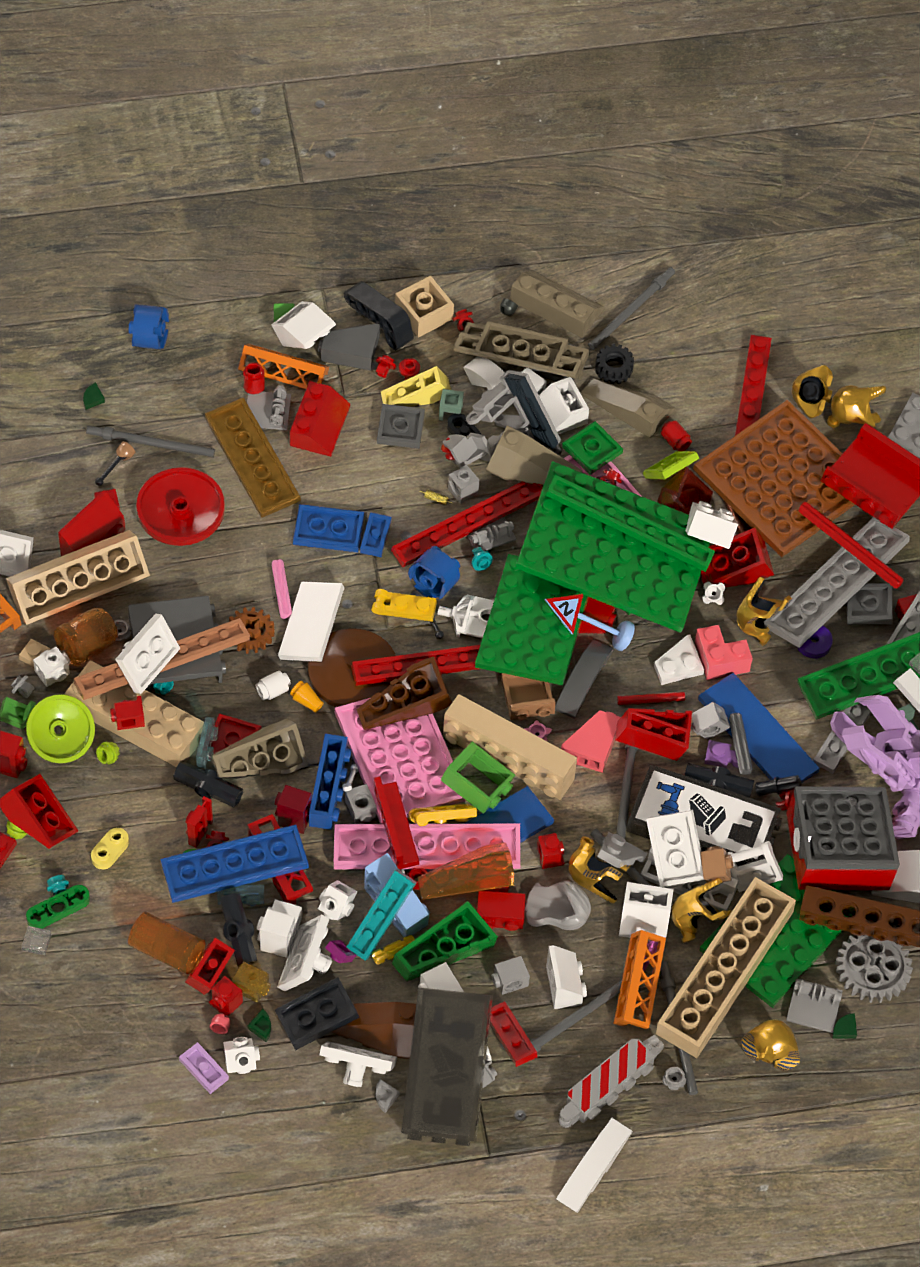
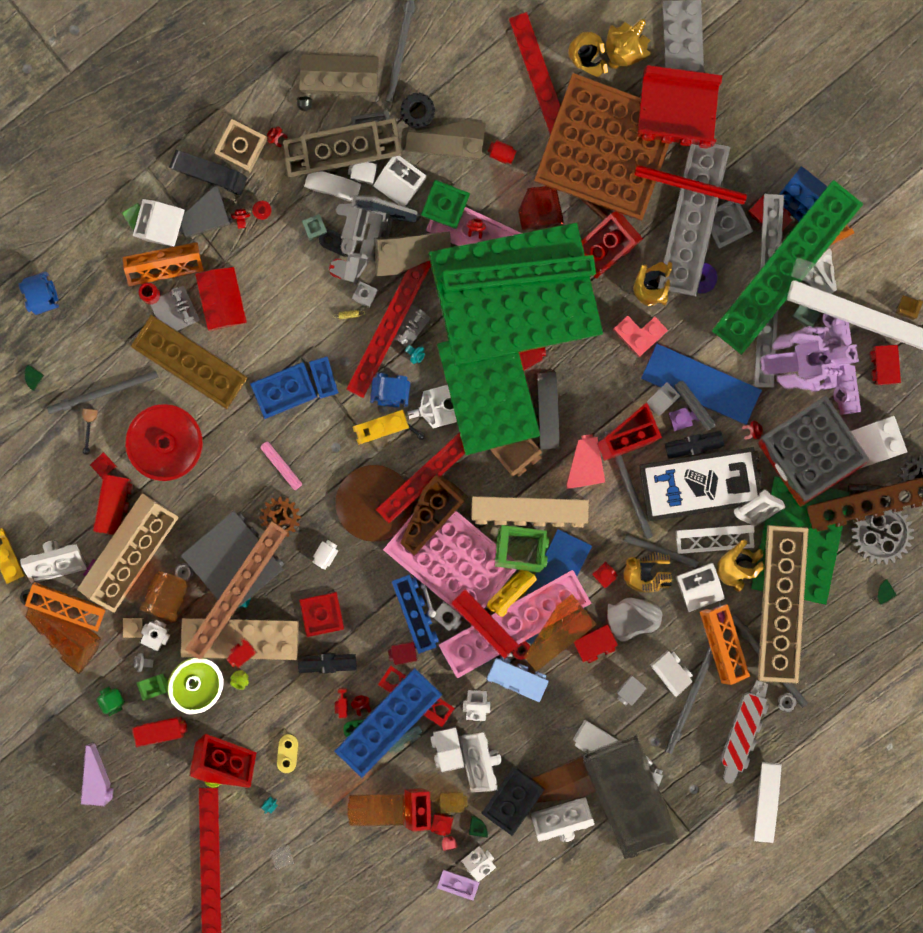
camera: 25 degrees left, 30 degrees up
(76, 905) = (277, 836): green beam -> none
(147, 653) = (228, 605): white plate -> none
(209, 734) = (305, 627): clear light blue plate -> none
(238, 929) = (420, 770): black piece -> none
(265, 752) = (354, 612): dark tan wedge -> none
(306, 696) = (353, 548): light orange cone -> none
(311, 621) = (320, 483): white tile -> none
(339, 952) = (501, 741): magenta plate -> none
(381, 914) = (517, 705): teal plate -> none
(385, 1095) = (595, 831): light grey tile -> none
(390, 950) = (536, 716): yellow axle -> none
(400, 426) = (285, 267): dark grey plate -> none
(417, 390) = (279, 228): light yellow slope -> none
(448, 941) = (573, 691): green wedge -> none
(511, 1035) = (656, 738): red plate -> none
(539, 728) = (544, 479): bright pink plate -> none
(568, 609) = (513, 377): light blue piece -> none
(619, 852) = (655, 550): light grey wing -> none
(651, 698) = (607, 399): red bar -> none
(670, 465) = (514, 186): lime tile -> none
(676, 848) = (699, 532): white plate -> none
(679, 662) = (611, 356): white wing -> none
(709, 588) = (605, 285): white plate -> none
(711, 525) = (577, 231): white slope -> none
(716, 864) = (734, 528): medium nougat brick -> none
(771, 1042) = (845, 645): pearl gold piece -> none
(777, 785) = (740, 426): black axle -> none
(814, 1005) = (855, 587): light grey hinge -> none

